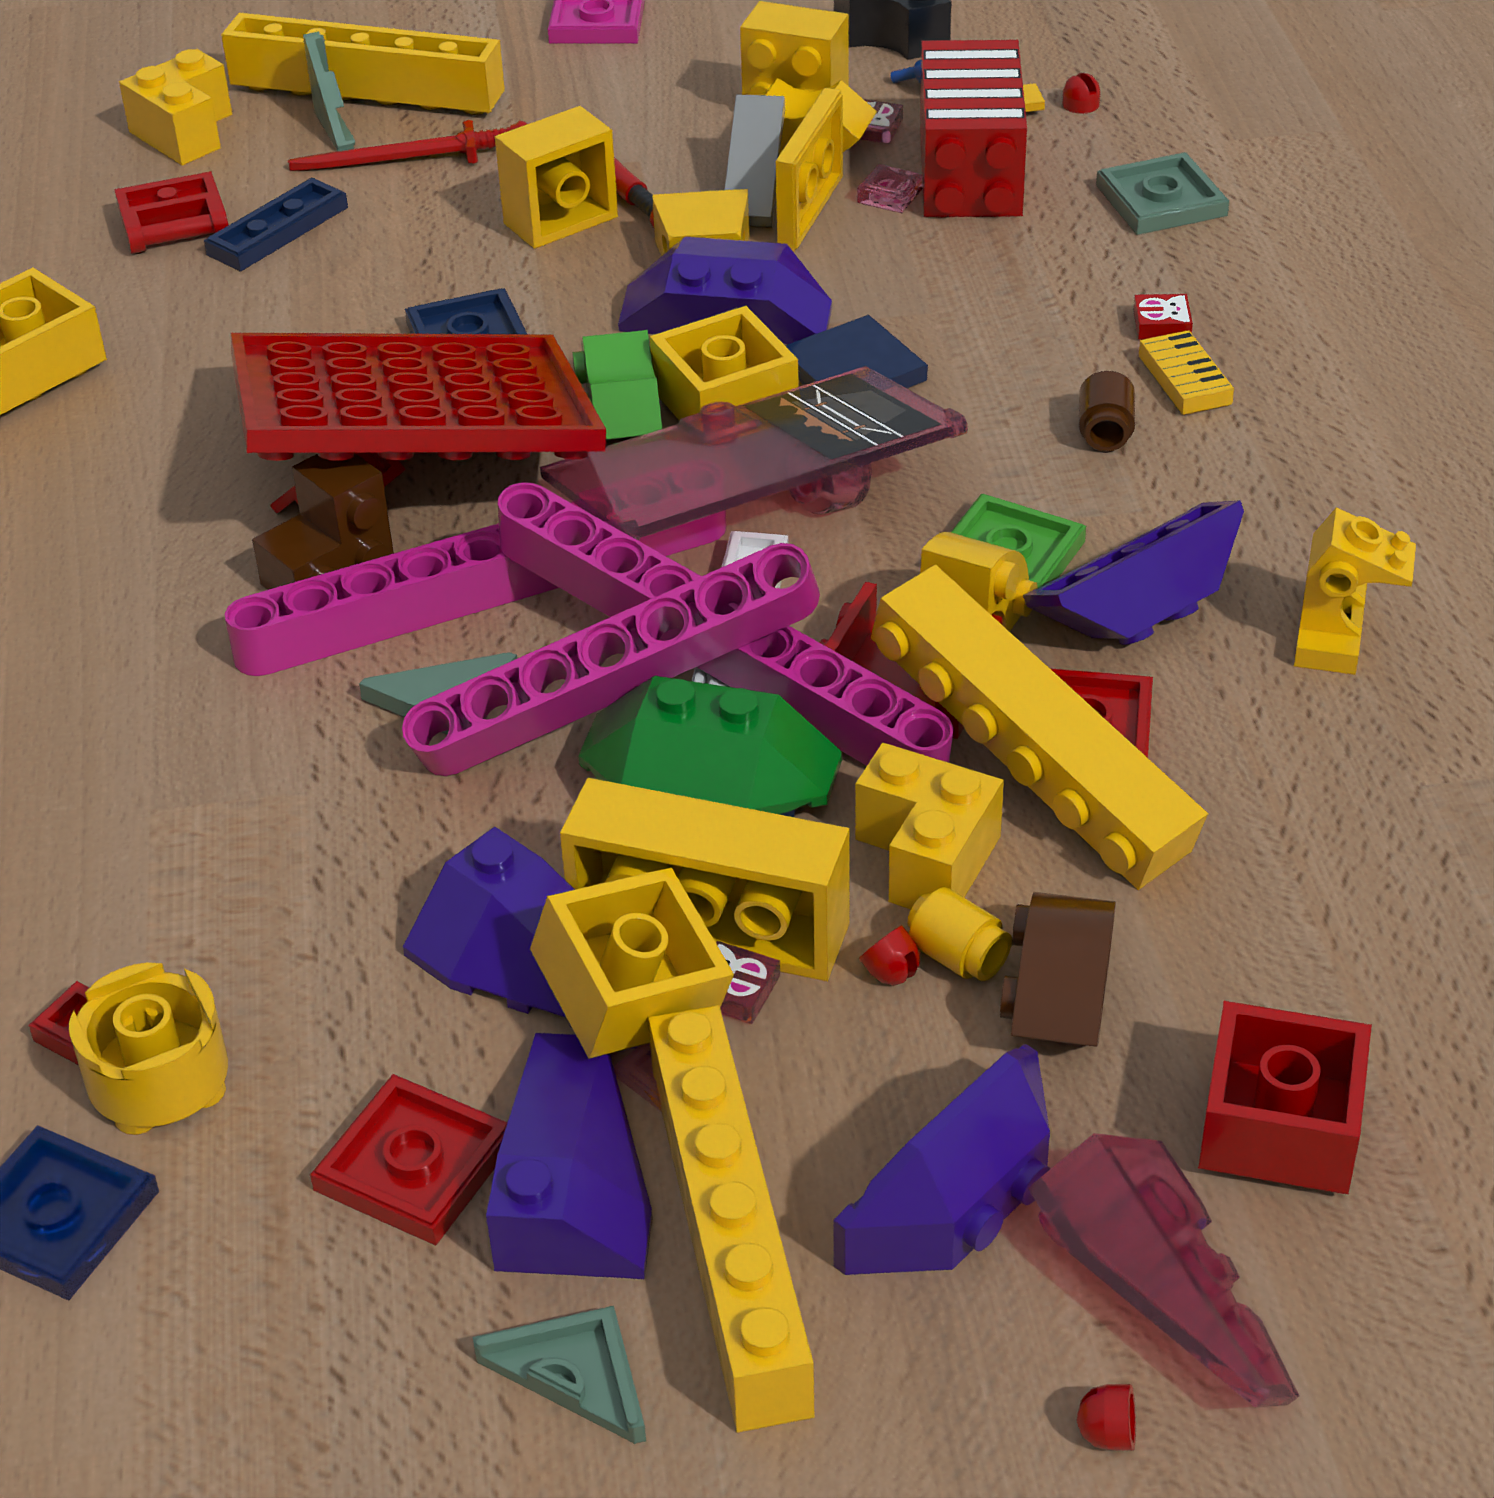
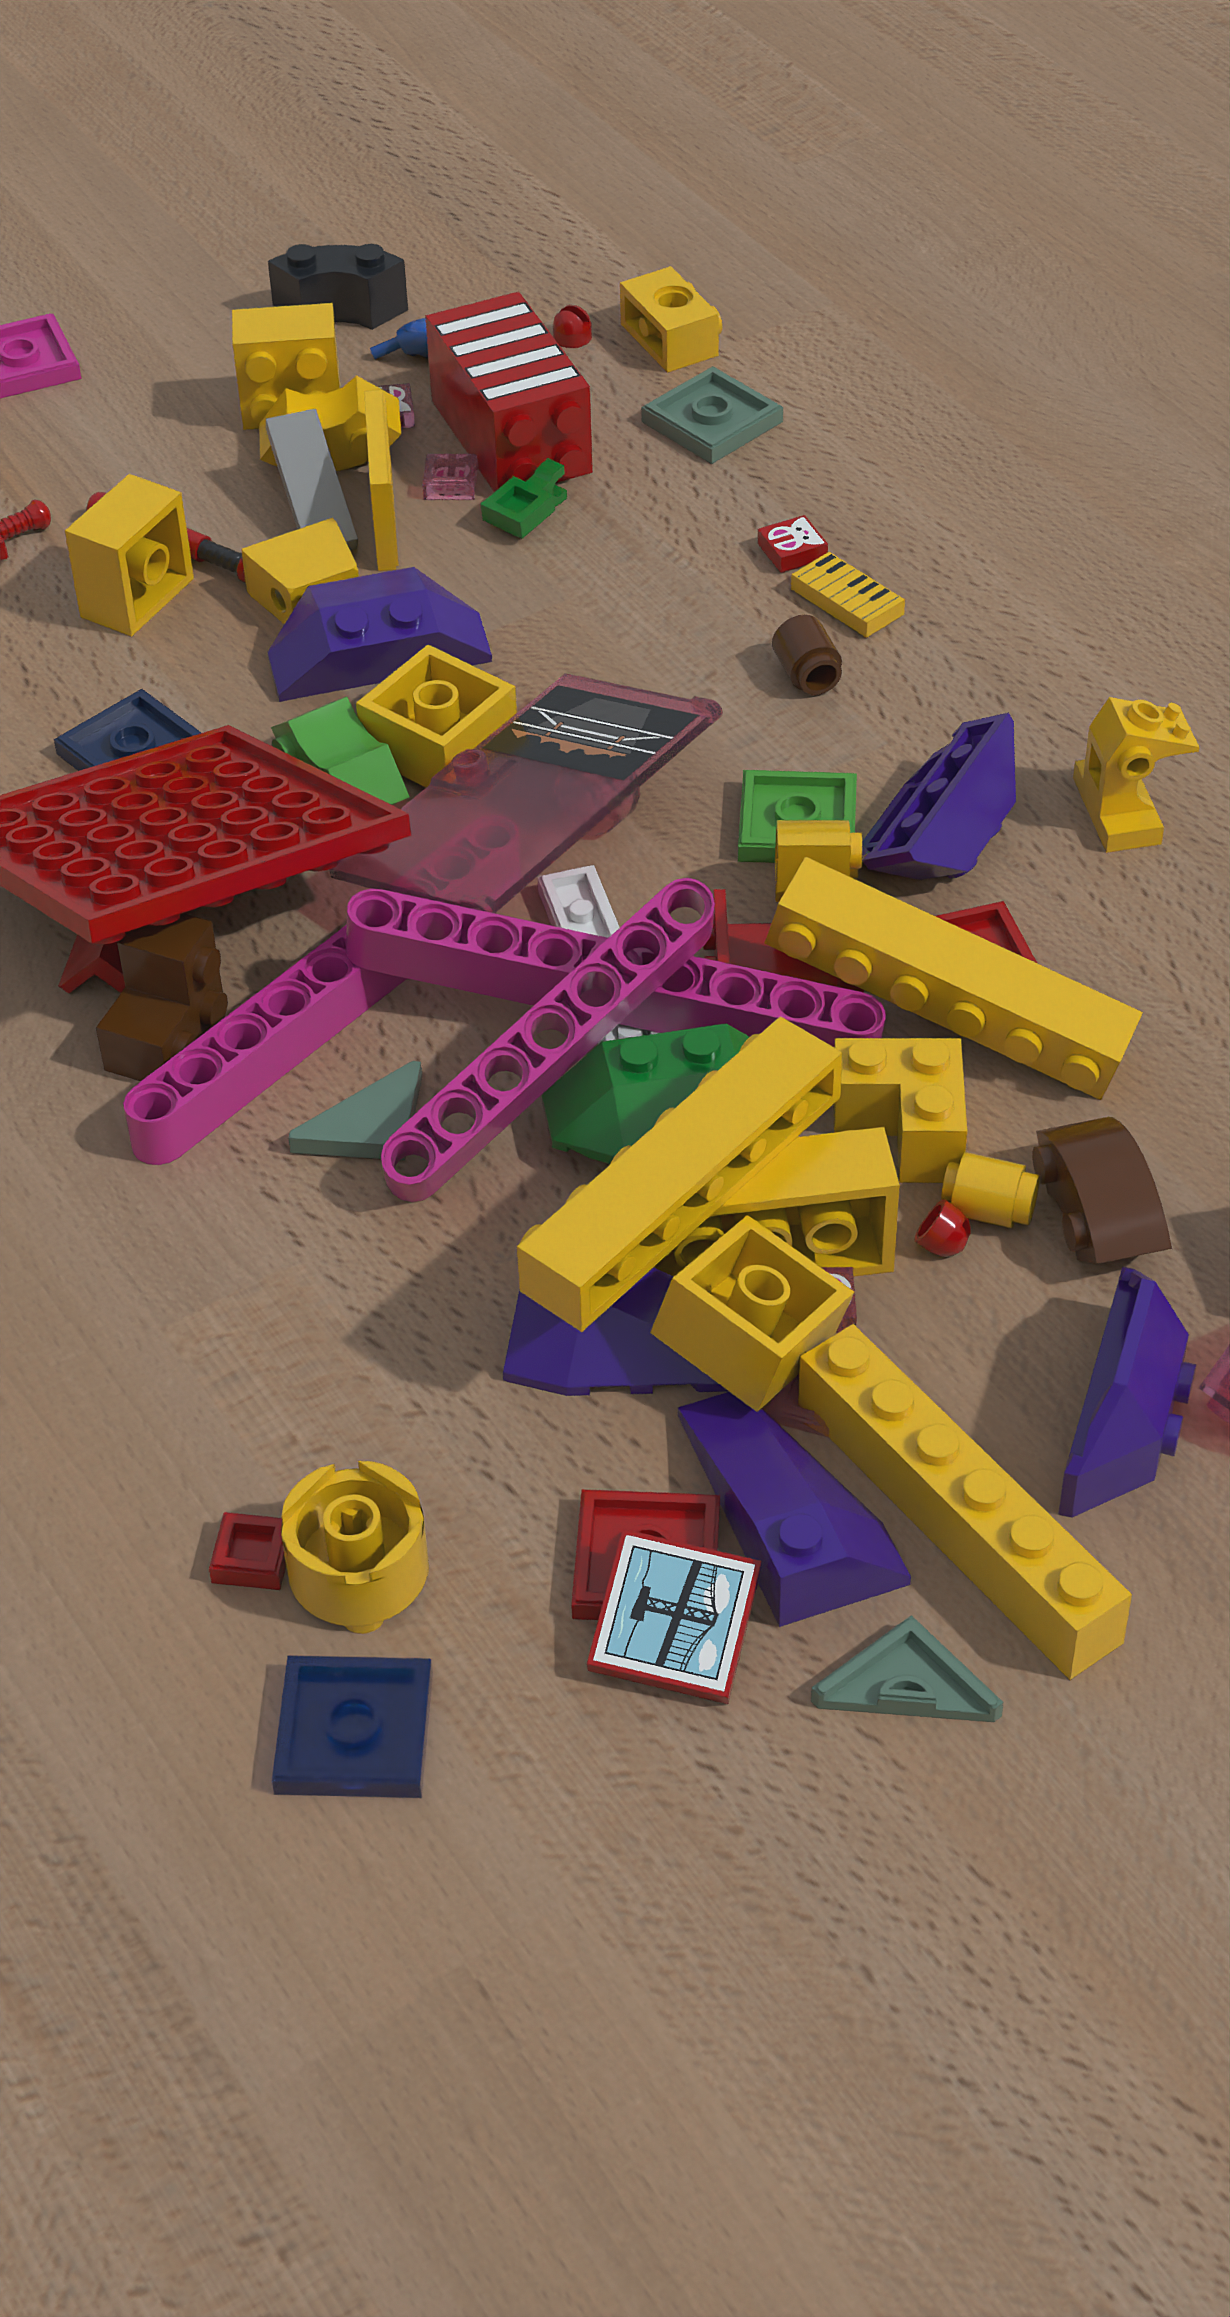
camera: 25 degrees left, 5 degrees up
(387, 1219) = (674, 1616): none -> tile
(614, 802) = (678, 1173): none -> yellow brick
(854, 346) = (538, 656): dark blue tile -> none
(935, 223) = (524, 505): none -> green plate
(1171, 105) = (670, 319): none -> yellow brick

